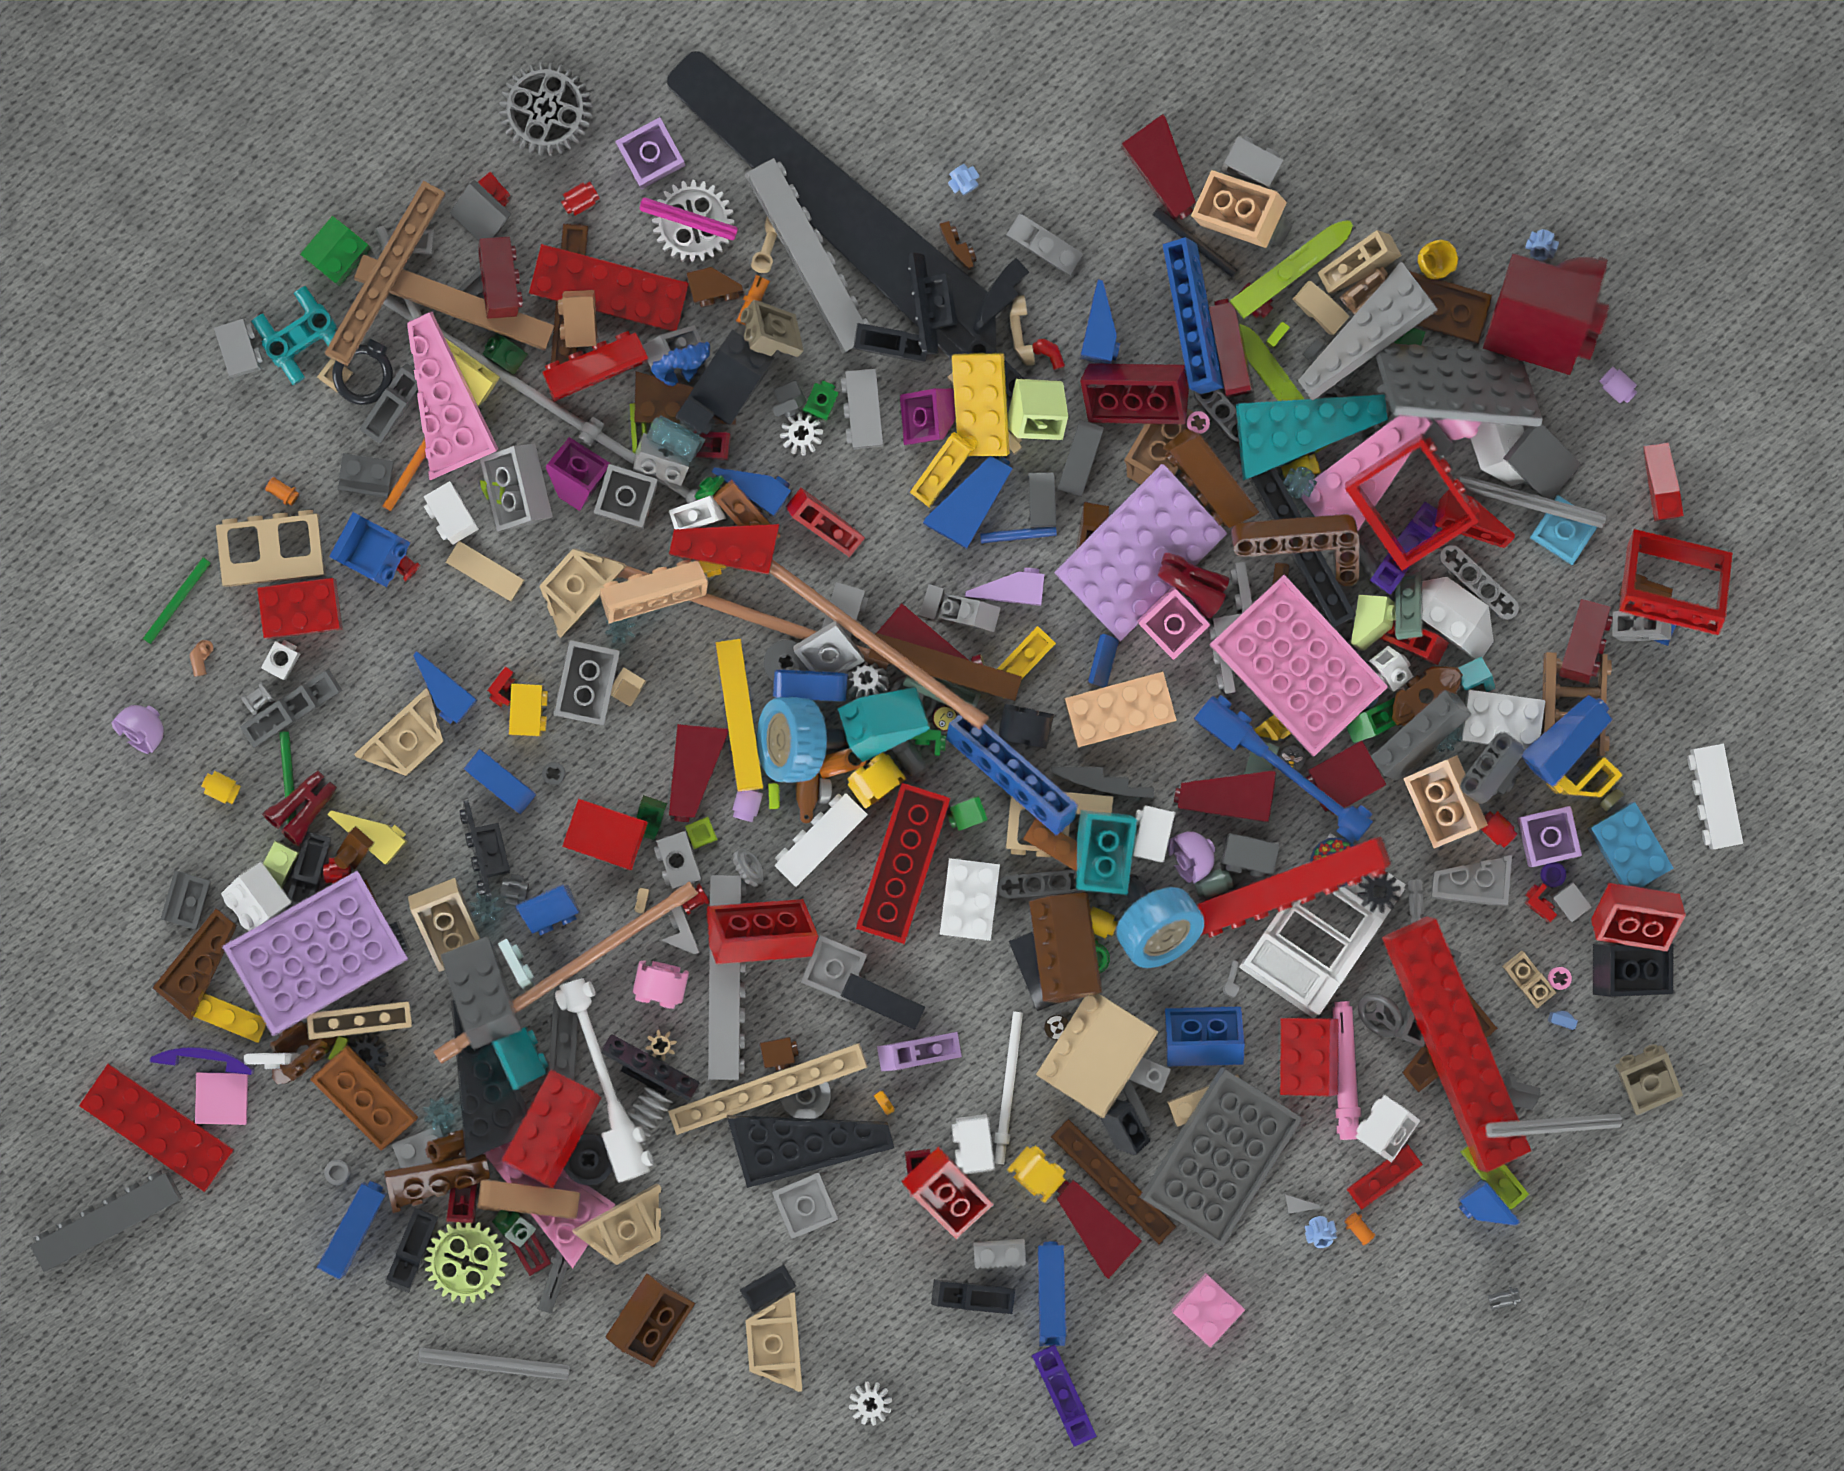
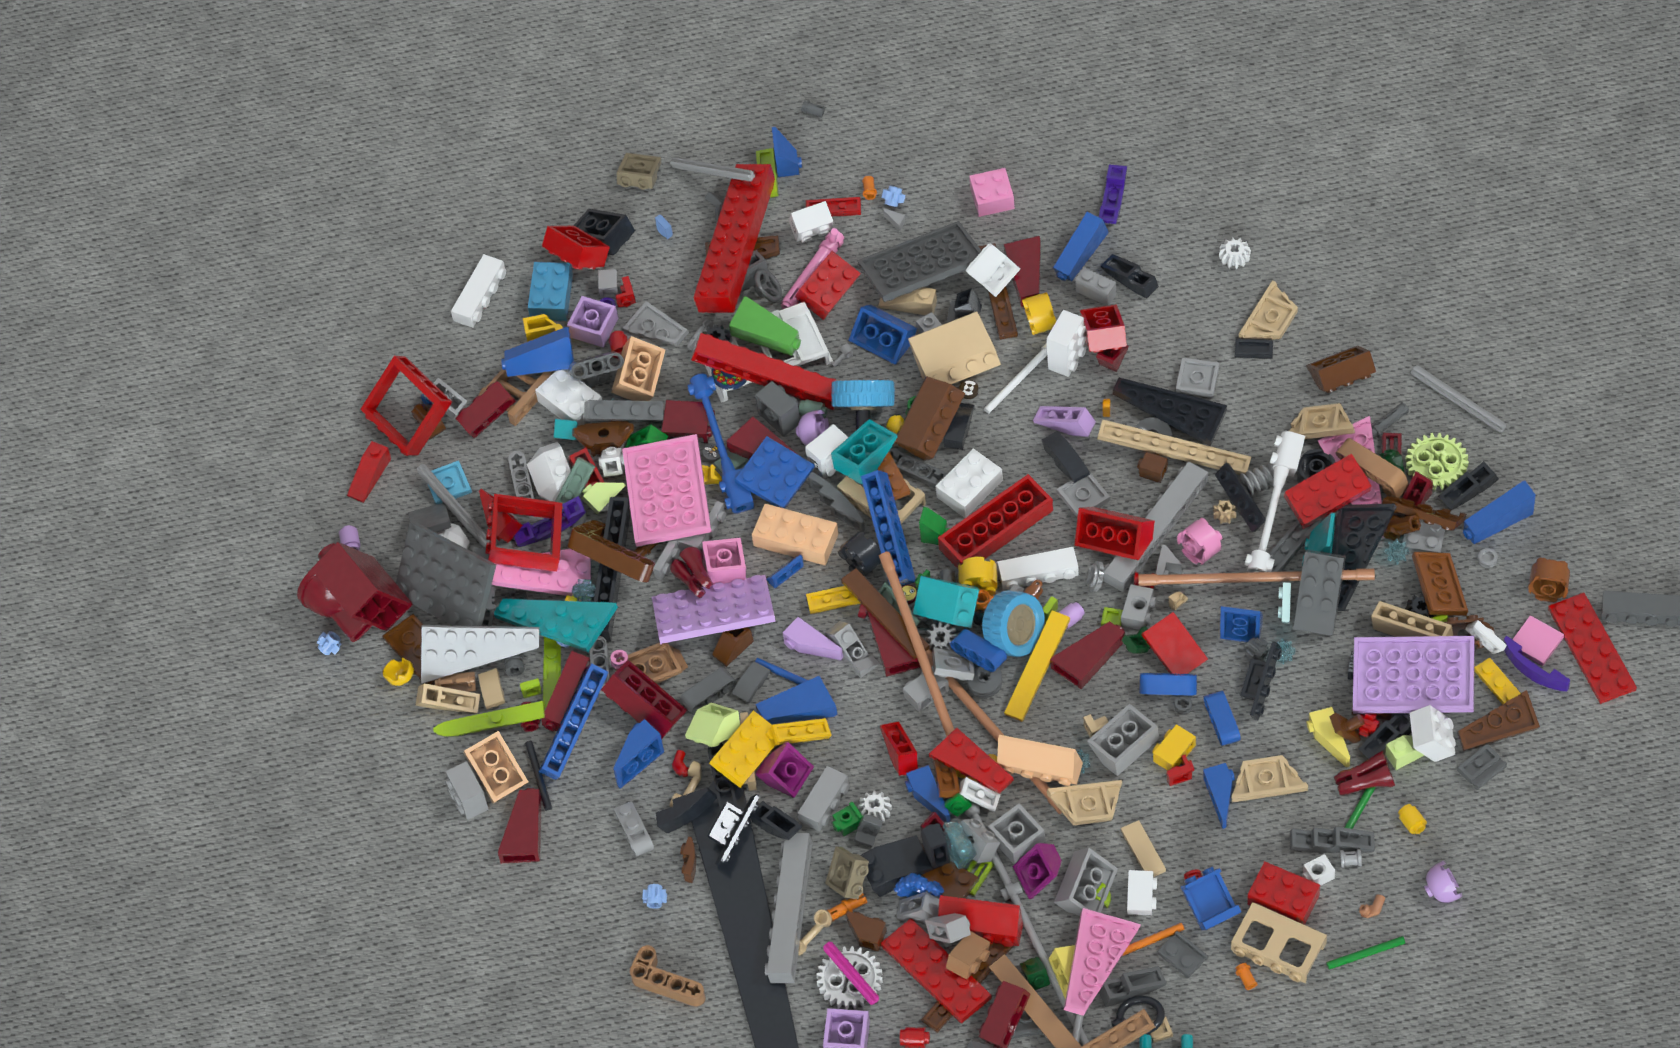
camera: 135 degrees left, 30 degrees down
(246, 1177) = (1549, 579): none -> dark orange brick
(443, 919) = (1315, 657): tan slope -> none
(582, 784) = (1168, 684): none -> blue beam
(616, 331) = (948, 927): none -> light grey slope
(881, 96) = (693, 996): none -> medium nougat beam
(1123, 1192) = (992, 269): none -> white bracket
(1192, 765) = (774, 473): none -> blue plate
(1209, 478) = (637, 623): reddish brown slope -> none
(1338, 941) = (763, 328): none -> bright green slope
(1529, 979) = (665, 260): tan slope -> none
(1561, 970) = (642, 249): bright pink bush -> none

